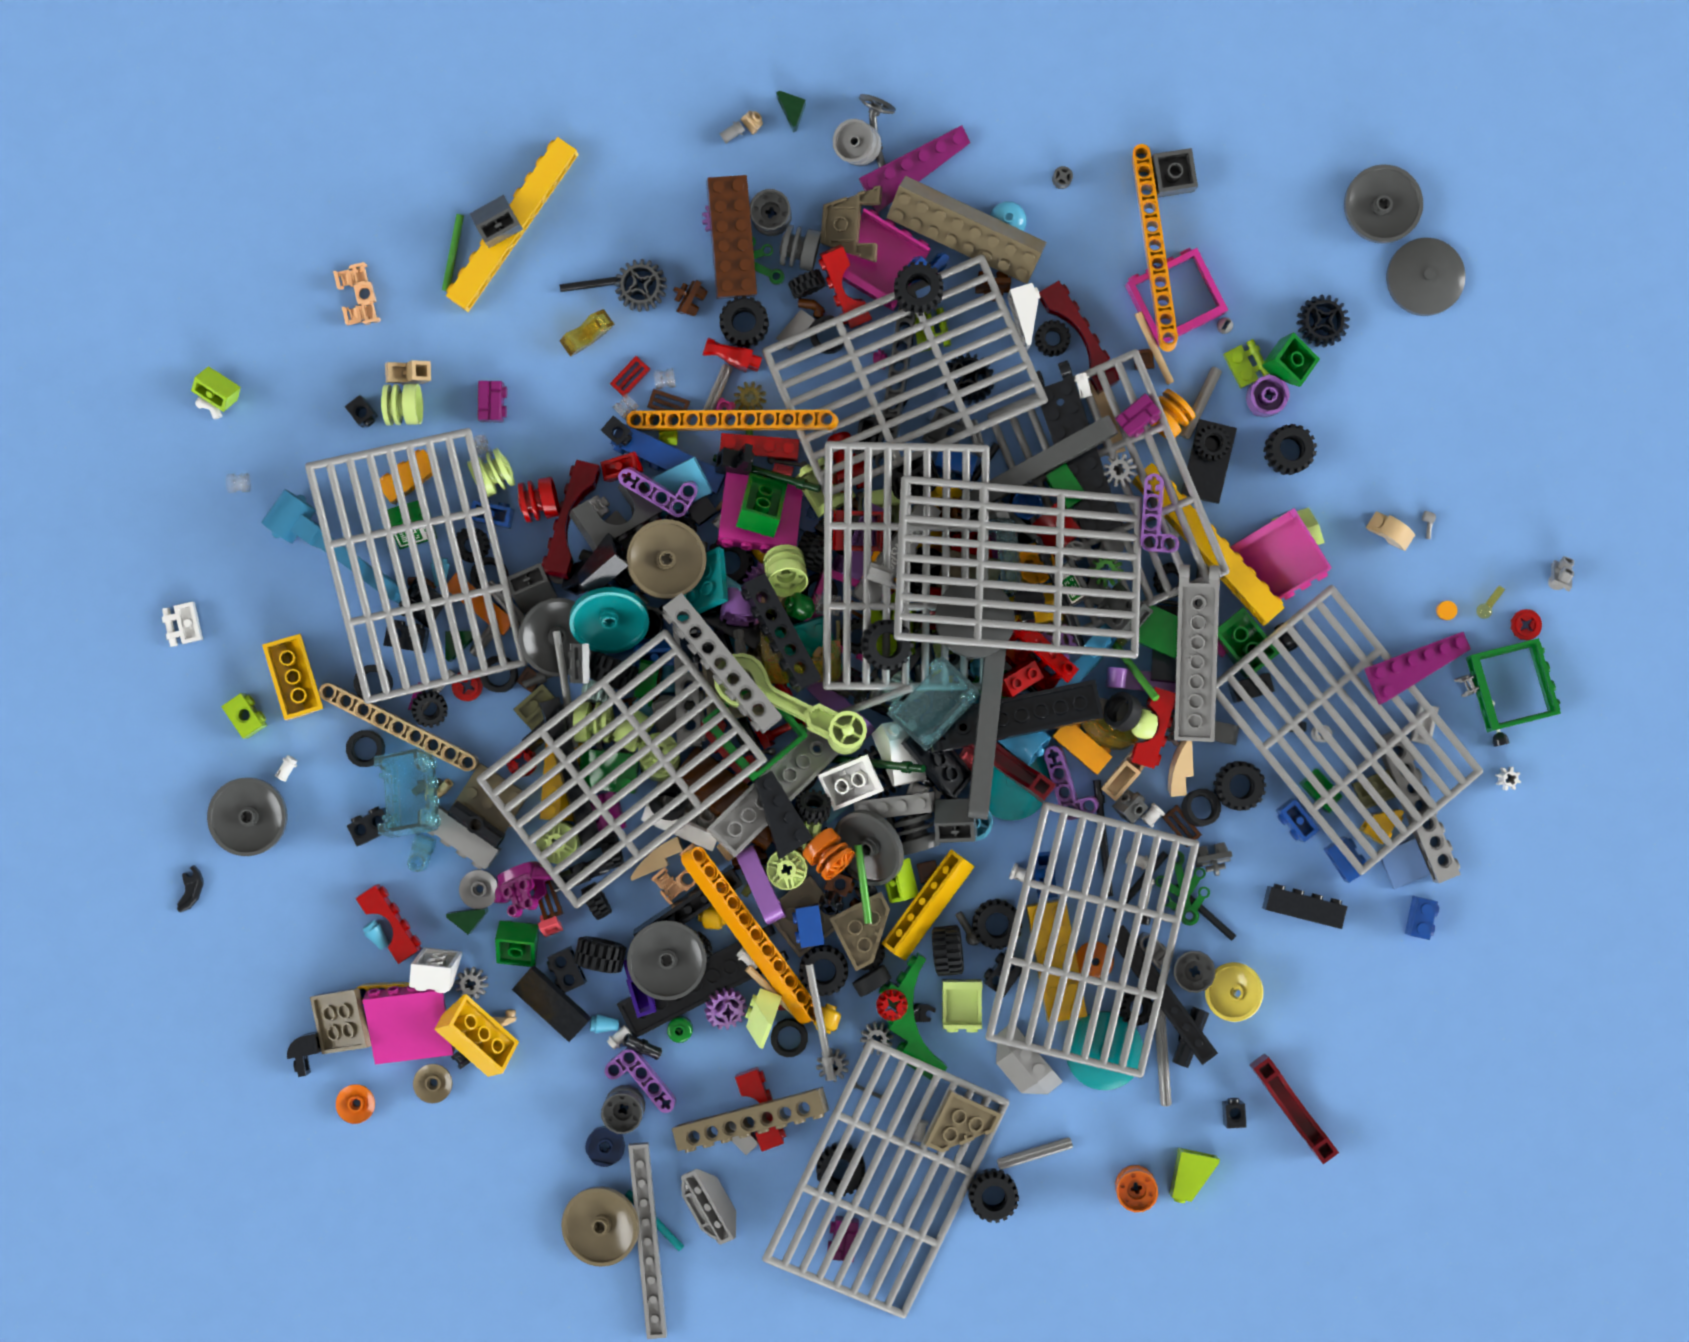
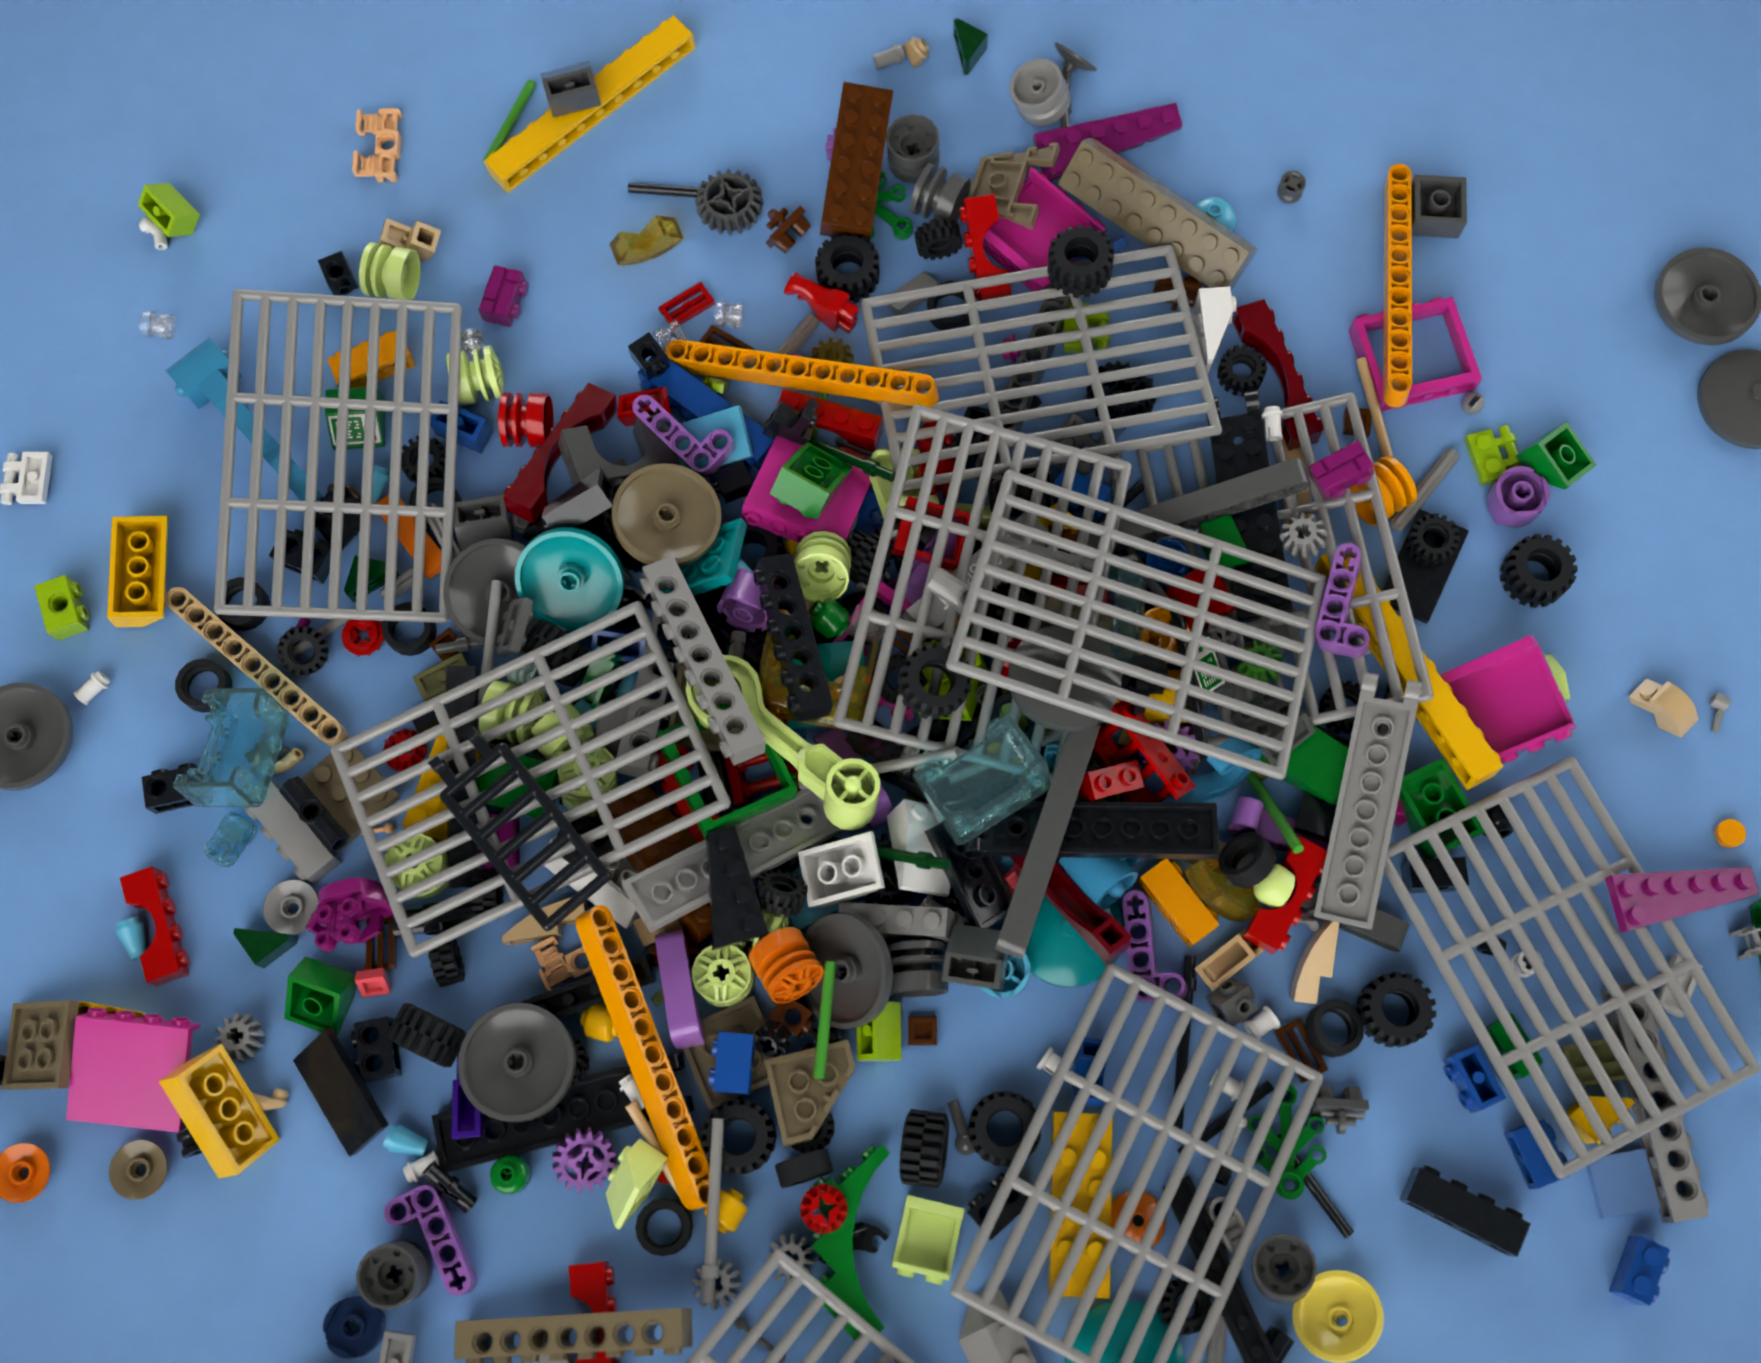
camera: 25 degrees right, 15 degrees down
(434, 969) = (189, 1000): white slope -> none
(573, 788) = (551, 813): none -> black bar
(600, 505) = (604, 445): light grey gear -> none
(813, 305) = (939, 268): reddish brown arm -> none
(928, 905) = (911, 1076): yellow brick -> none
(1317, 315) = (1606, 407): black gear -> none

